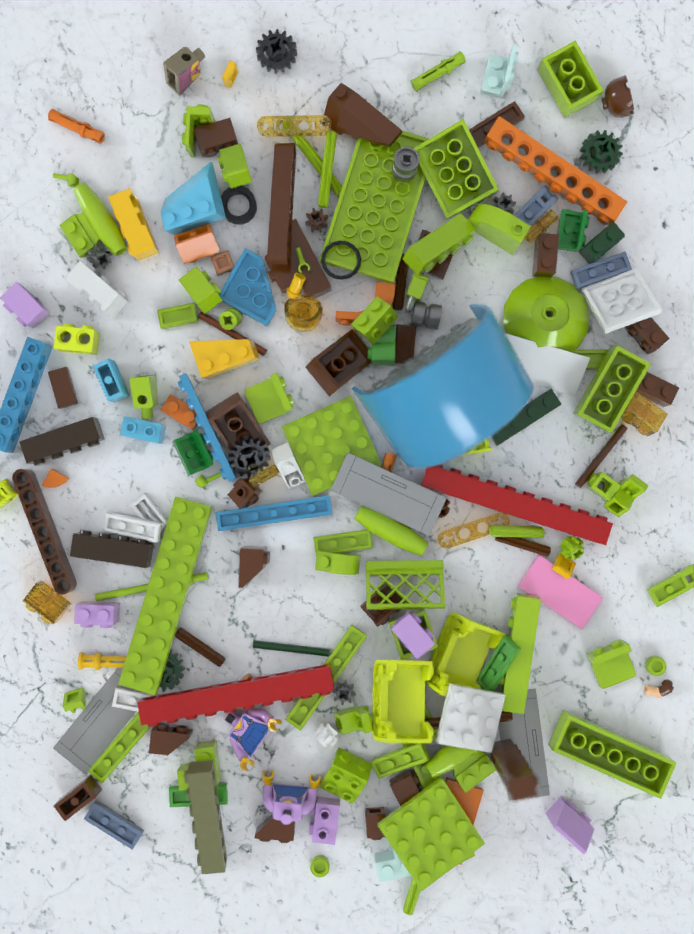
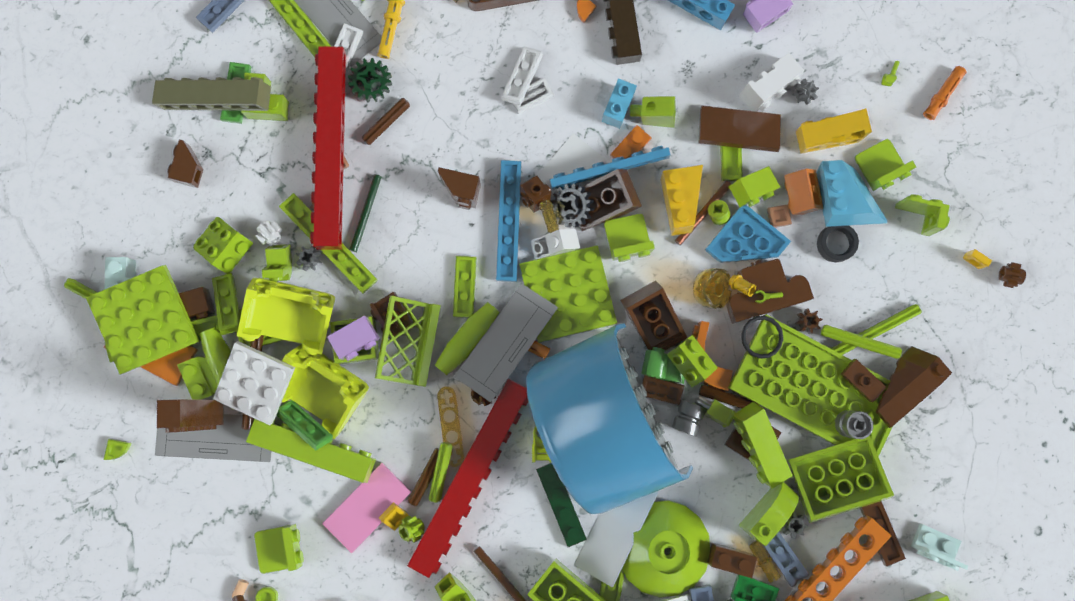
camera: 90 degrees right, 5 degrees down
(63, 387) = (677, 32): reddish brown tile -> none
(76, 344) = (721, 53): neon yellow brick -> none
(92, 225) = (839, 90): lime plate -> none
(96, 613) = (441, 24): lavender brick -> none
(110, 549) = (503, 50): dark brown brick -> none
(111, 380) = (675, 80): medium azure brick -> none
(141, 588) = (457, 121): lime bar -> none
(146, 312) = (739, 128): none -> reddish brown tile
(157, 173) = (883, 165): none -> lime bracket
(165, 596) = (445, 95): lime plate -> none
(167, 739) = (299, 70): reddish brown slope -> none
(183, 69) = (989, 211): dark tan torso -> none
(193, 452) = (586, 149): green bracket -> none
(201, 481) = (554, 154): lime hand -> none
(215, 137) = (912, 232): reddish brown brick -> none
(234, 165) = (879, 245): lime brick -> none
(239, 40) = (1012, 275): none -> reddish brown gear
(249, 732) = (287, 154): torso -> none
(278, 59) = (1003, 309): black gear -> none
(281, 204) = (831, 286): reddish brown beam -> none
(289, 801) = (208, 182): lavender torso -> none
(294, 122) = (916, 316): clear yellow beam -> none
(319, 866) = (135, 201): lime tile -> none
(326, 820) = (181, 215): lavender brick -> none
(338, 563) = (444, 277): lime brick -> none
(363, 162) = (863, 380): none -> reddish brown plate
(373, 816) = (174, 264): reddish brown brick -> none
(436, 72) = (952, 490): lime pin -> none
(549, 833) = (116, 449): none -> lime tile
(571, 823) = (118, 471): lavender slope -> none
(609, 487) = (467, 582): lime brick -> none
(612, 754) = (182, 530): lime brick -> none

